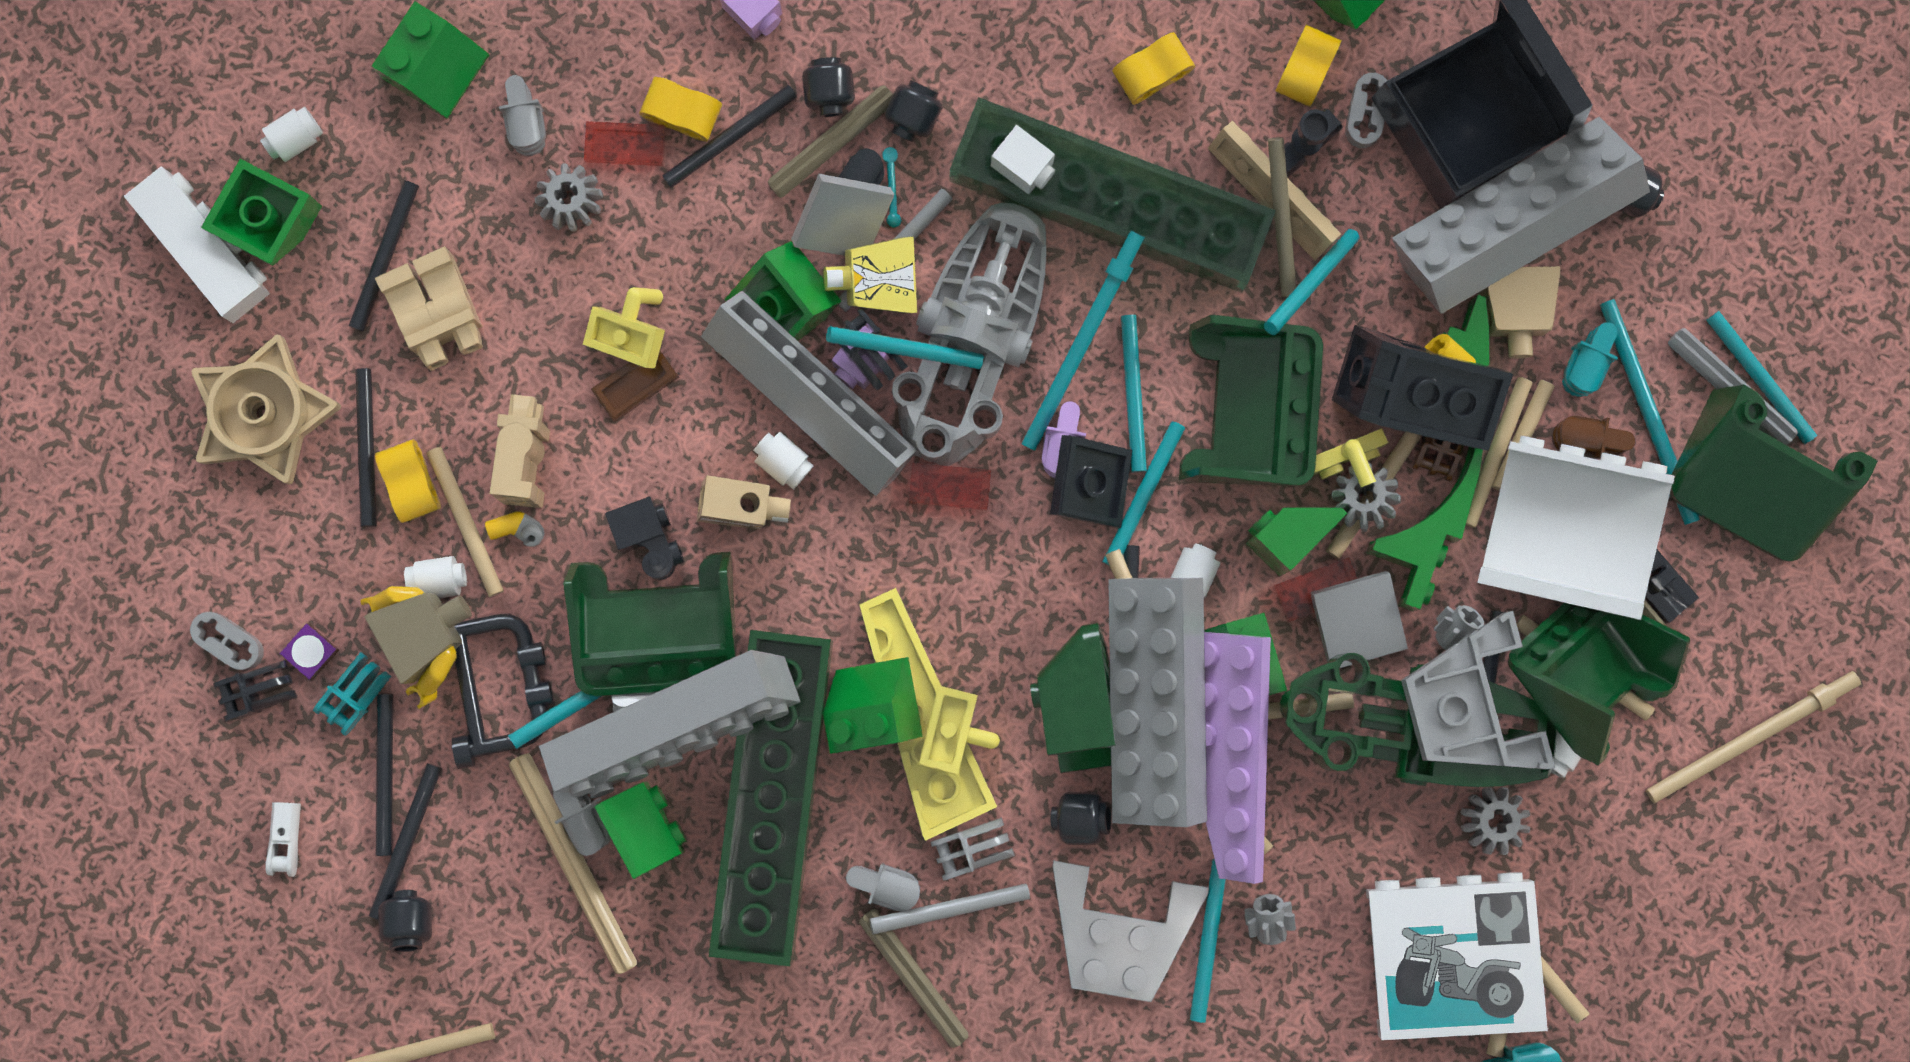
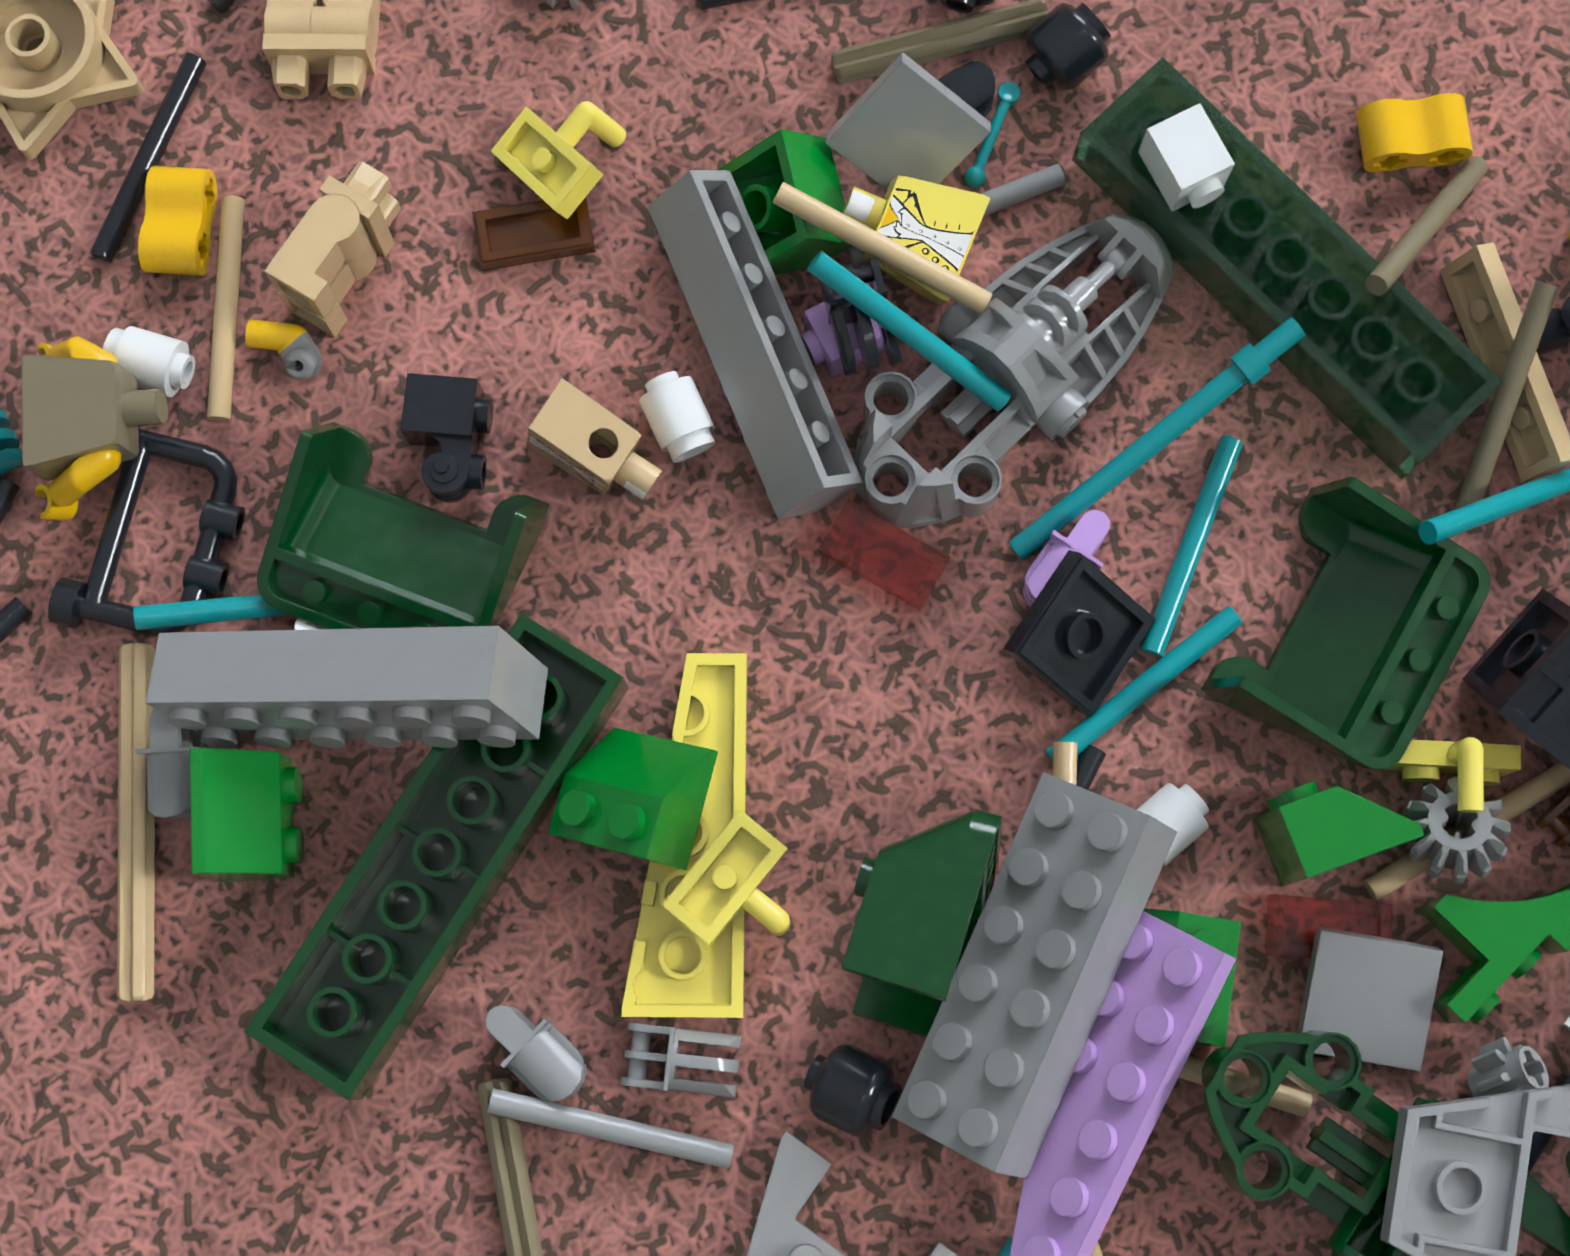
camera: 30 degrees right, 5 degrees down
(862, 300) = (882, 248): none -> tan bar
(1187, 129) = (1426, 226): none -> dark tan bar

